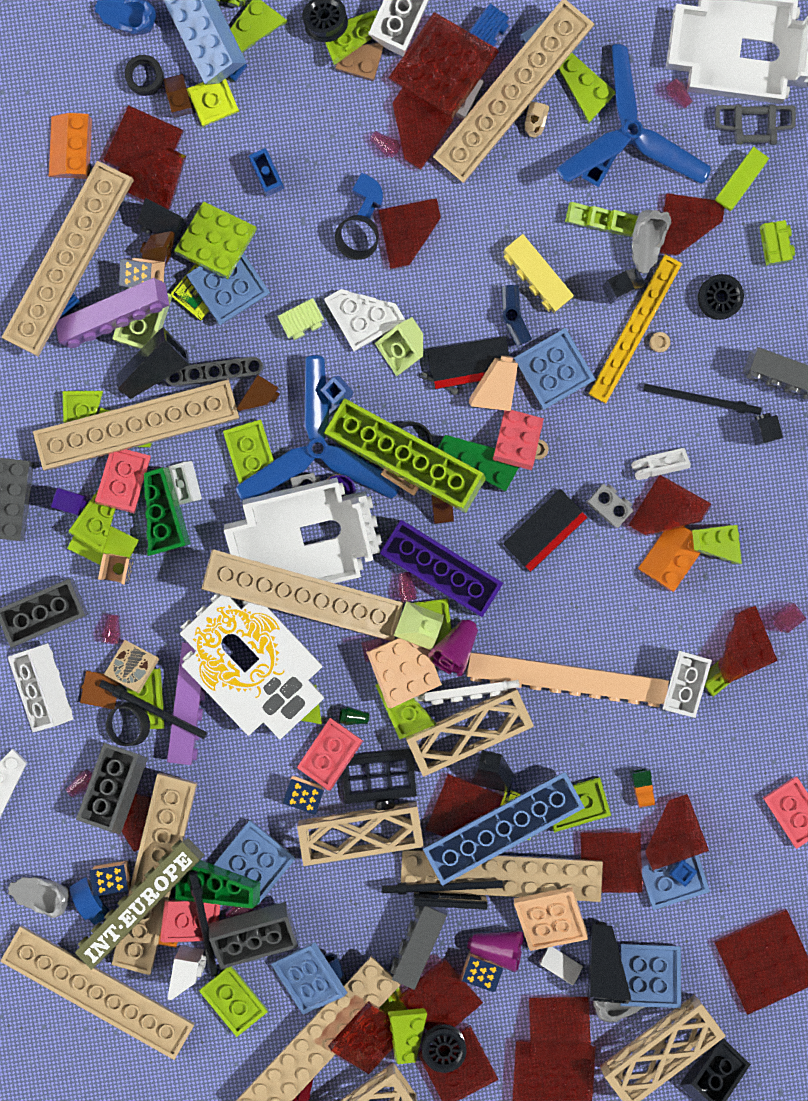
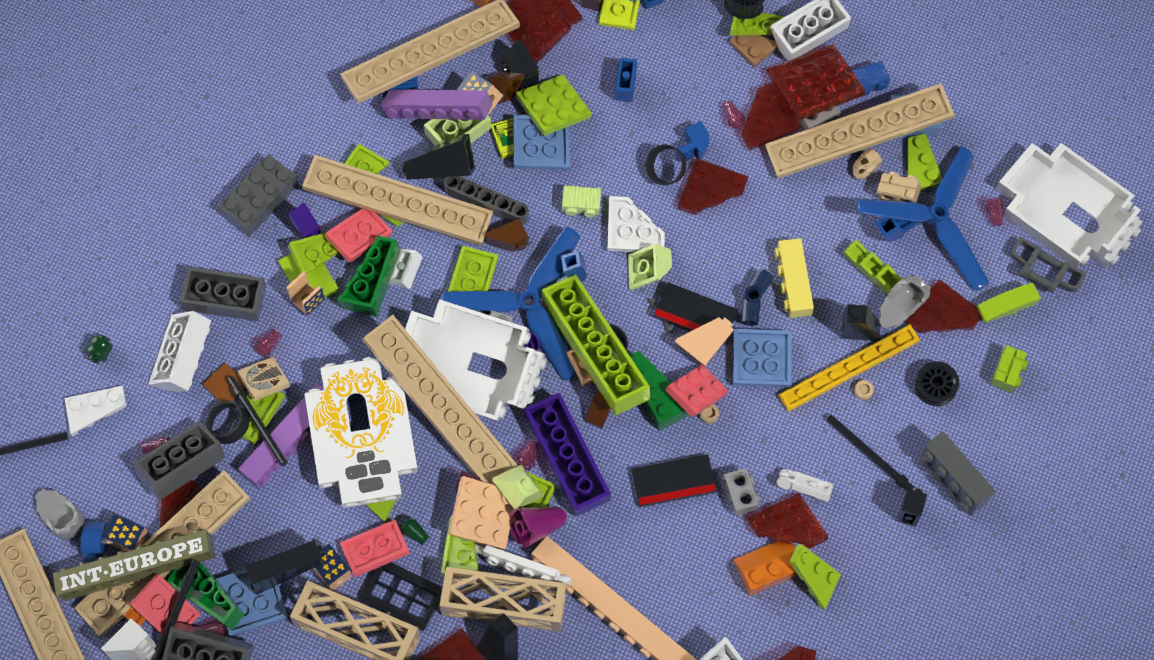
camera: 30 degrees right, 20 degrees down
(268, 825) = (284, 566): none -> black slope
(581, 126) = (898, 188): none -> tan brick

